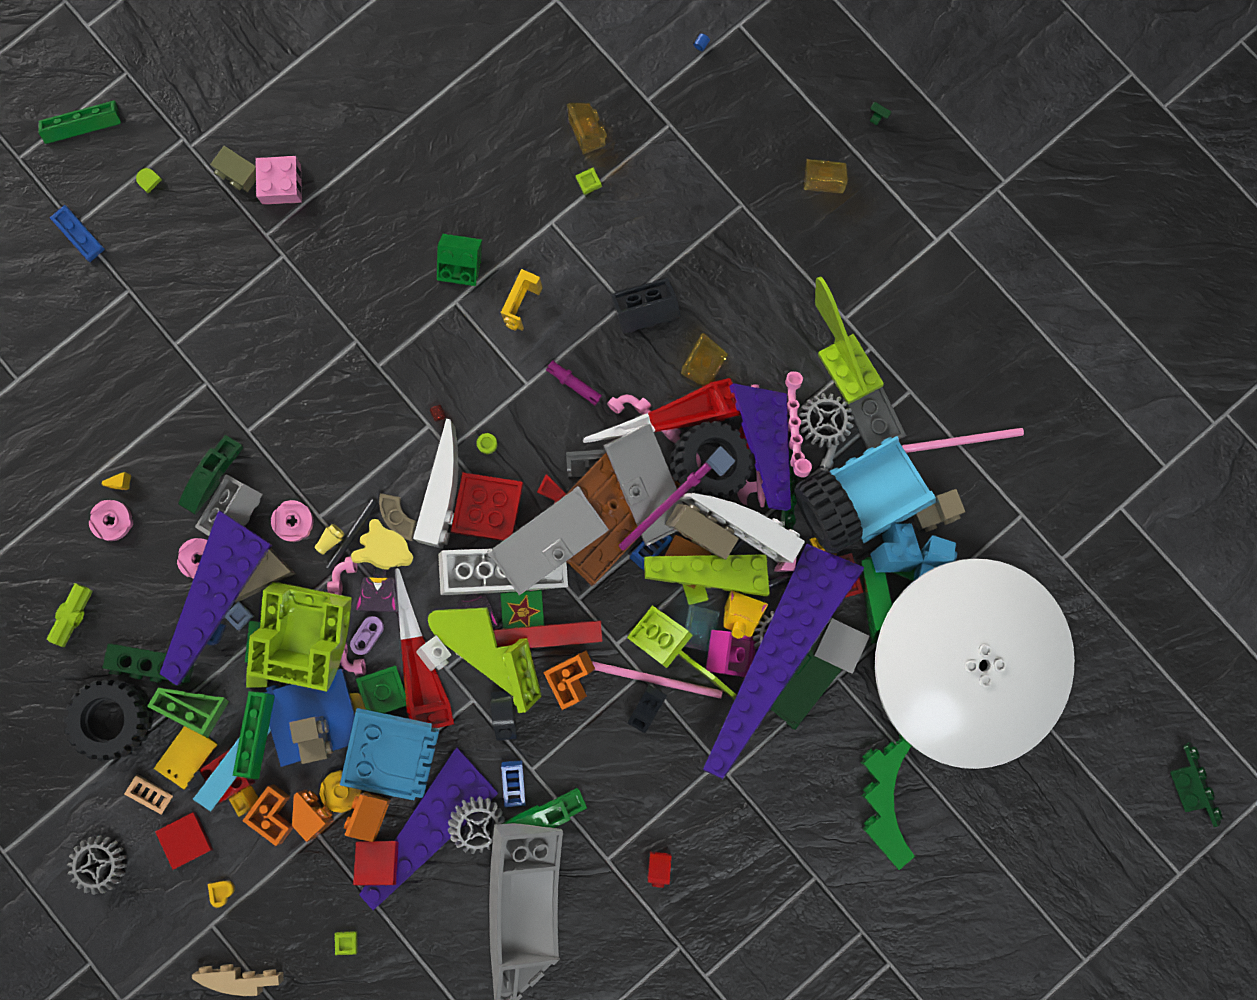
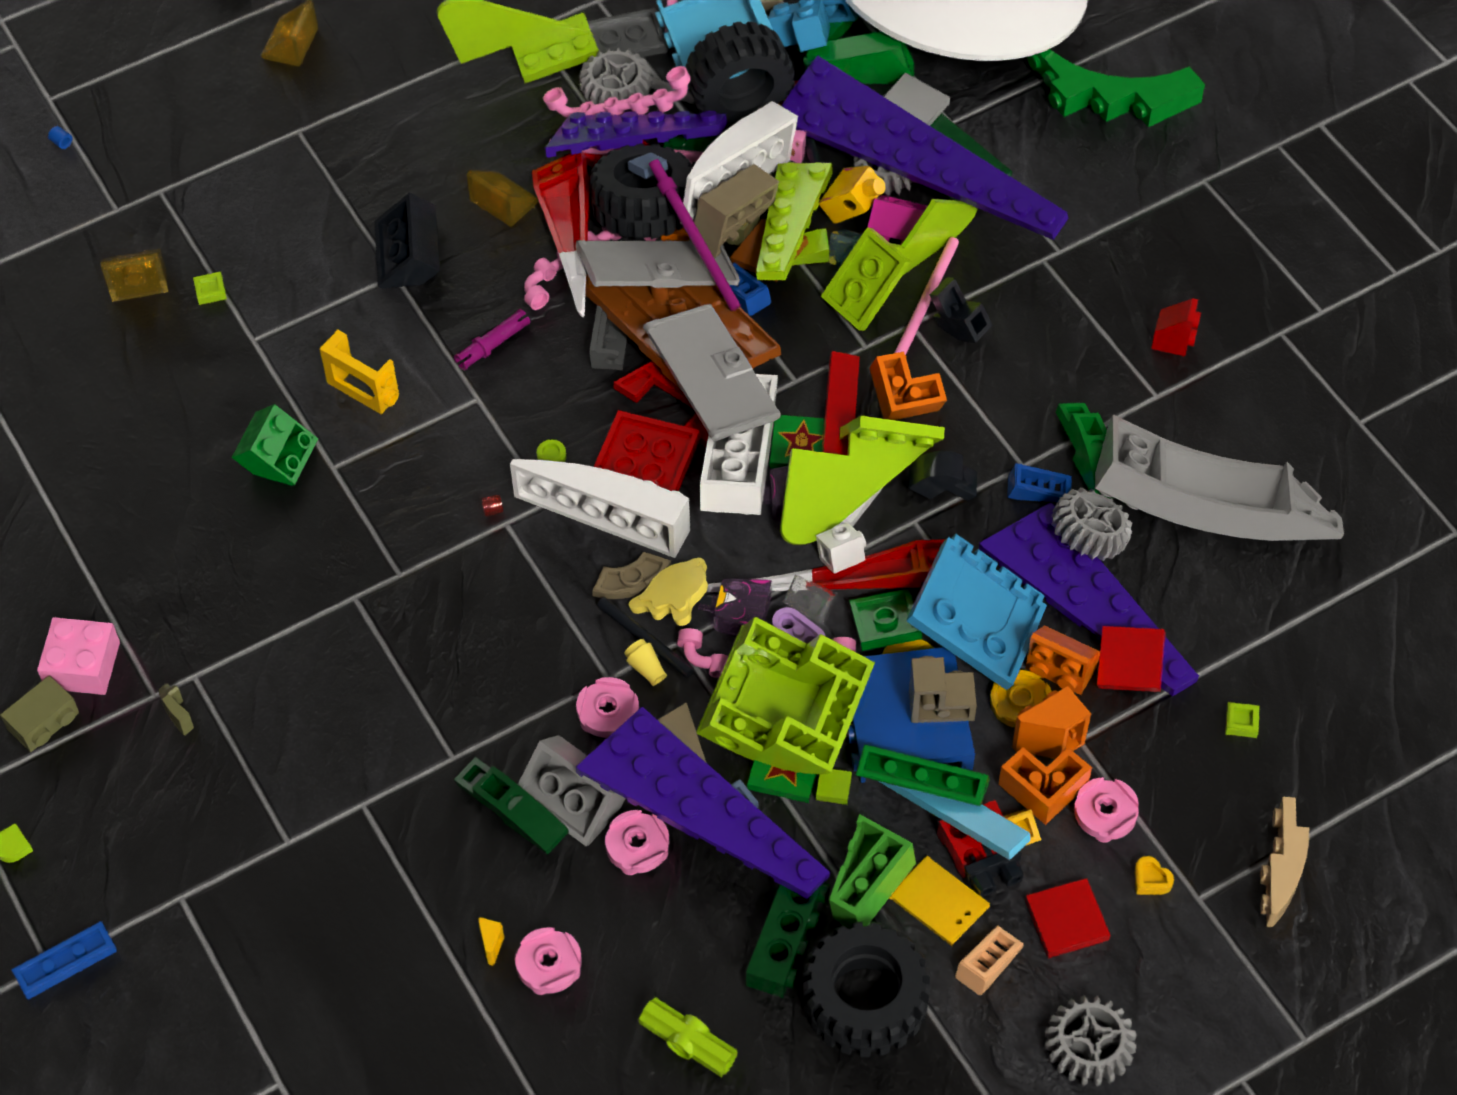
camera: 80 degrees left, 25 degrees down
(249, 249) = (171, 701): none -> olive slope
(251, 858) = (1101, 825): none -> bright pink plate
(387, 641) = (810, 599): none -> clear slope

